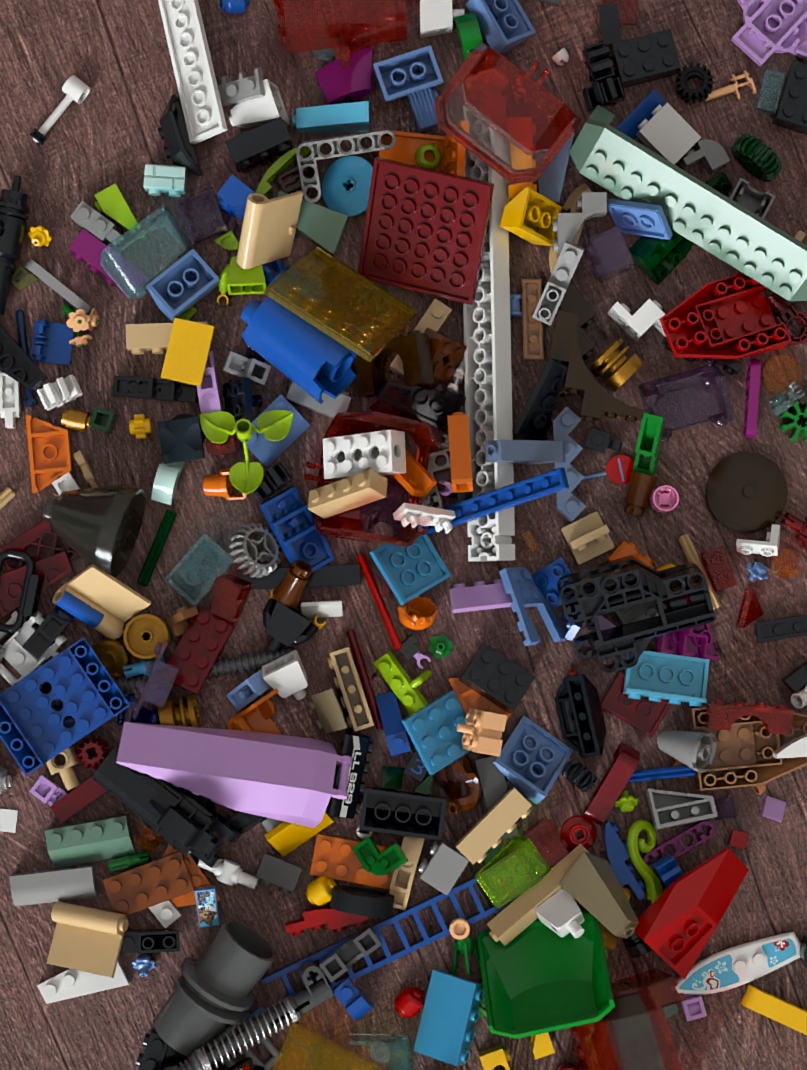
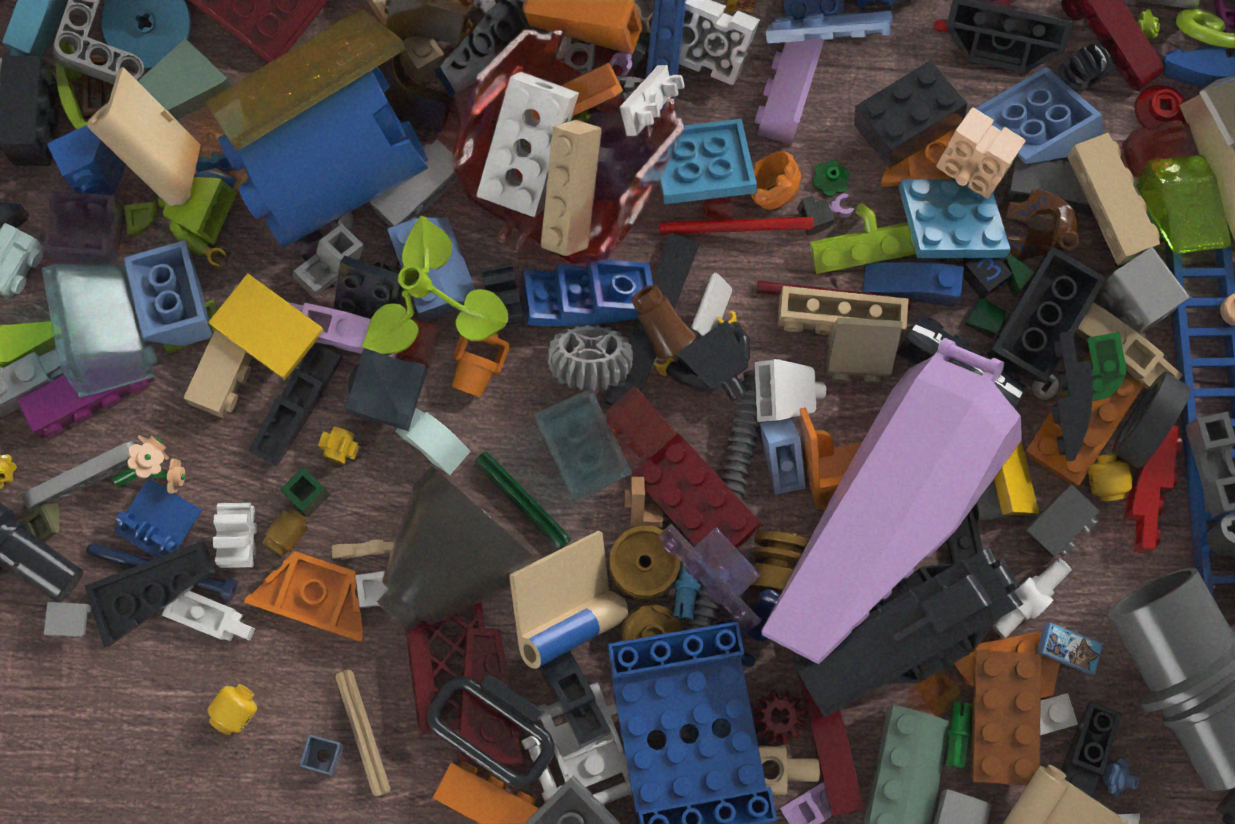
camera: 65 degrees left, 10 degrees down
(349, 851) = (1075, 409): none -> black slope

